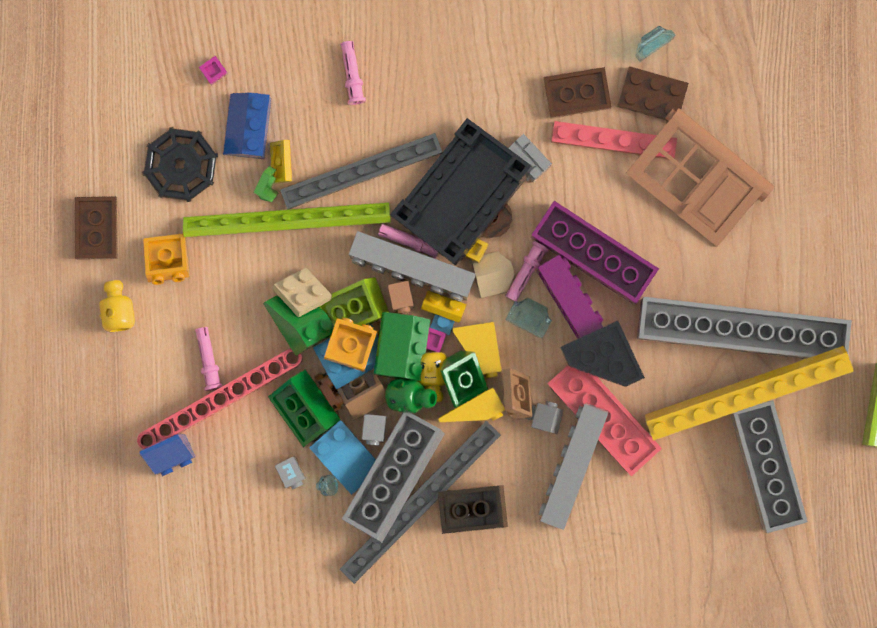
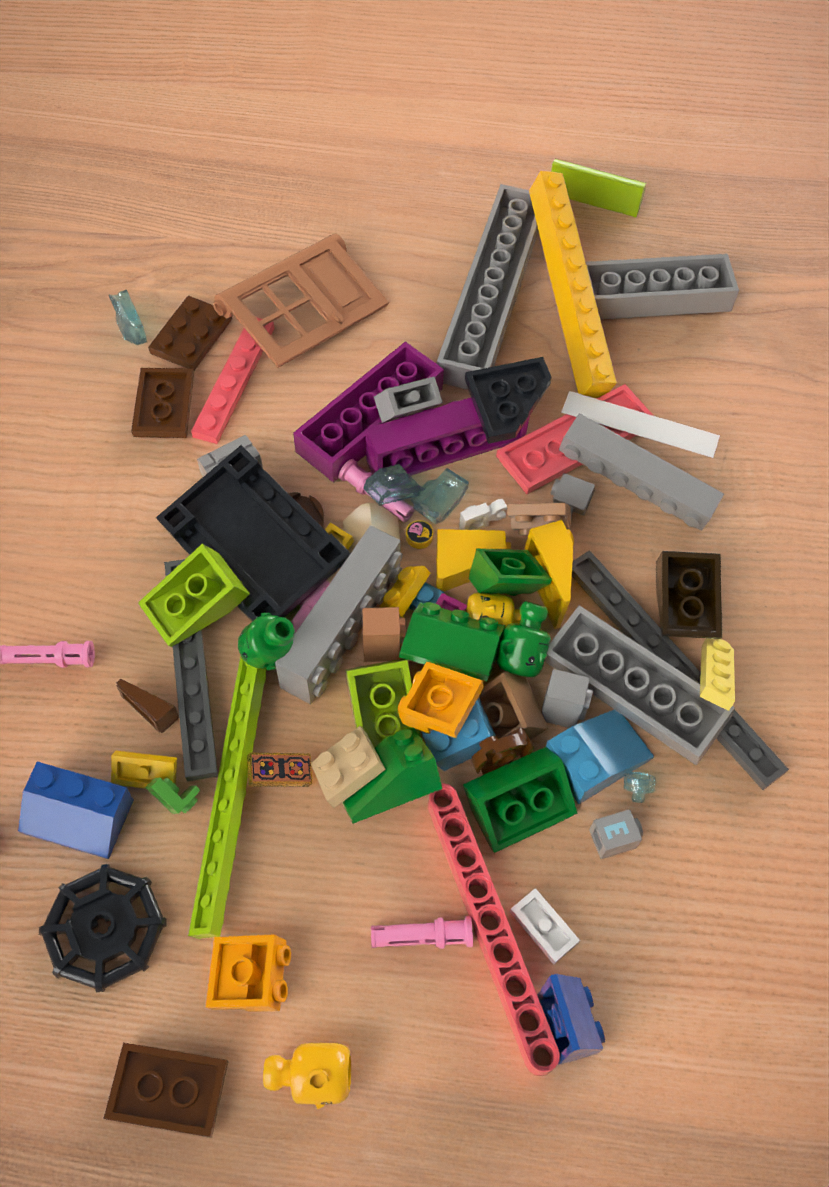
camera: 85 degrees left, 25 degrees down
(225, 433) = (544, 926): none -> white plate
(295, 249) = (279, 769): none -> tile
(322, 157) = (150, 707): none -> reddish brown slope
(374, 220) = (266, 641): none -> green piece
(406, 162) = (193, 596): none -> lime slope
(407, 529) = (717, 673): none -> light yellow plate
(496, 309) = (419, 534): none -> tile
(516, 349) = (479, 516): none -> white plate
(525, 285) = (392, 485): none -> clear light blue slope
(590, 281) = (407, 399): none -> light grey brick
(623, 463) = (641, 424): none -> white sticker

